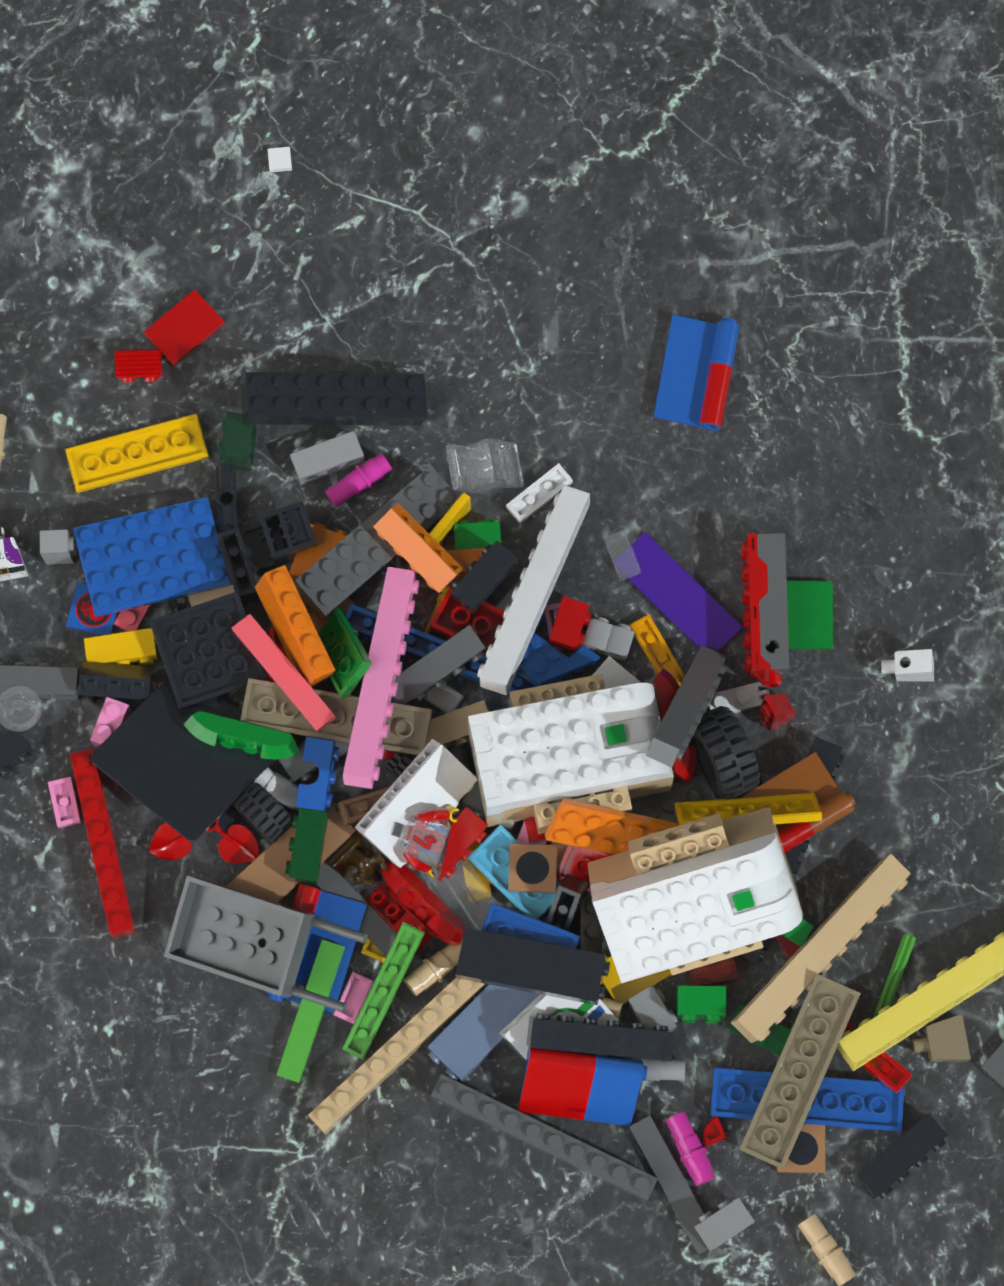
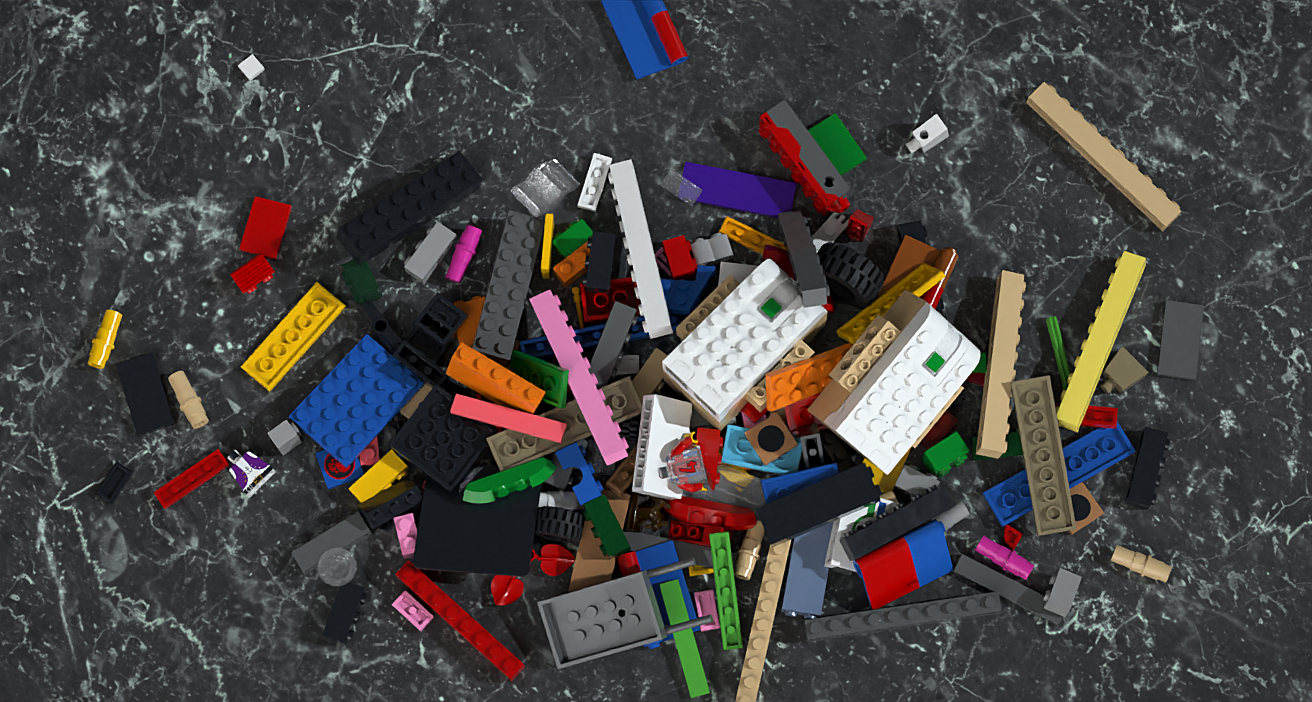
camera: 35 degrees left, 0 degrees up
(418, 548) = (542, 271): orange brick -> none

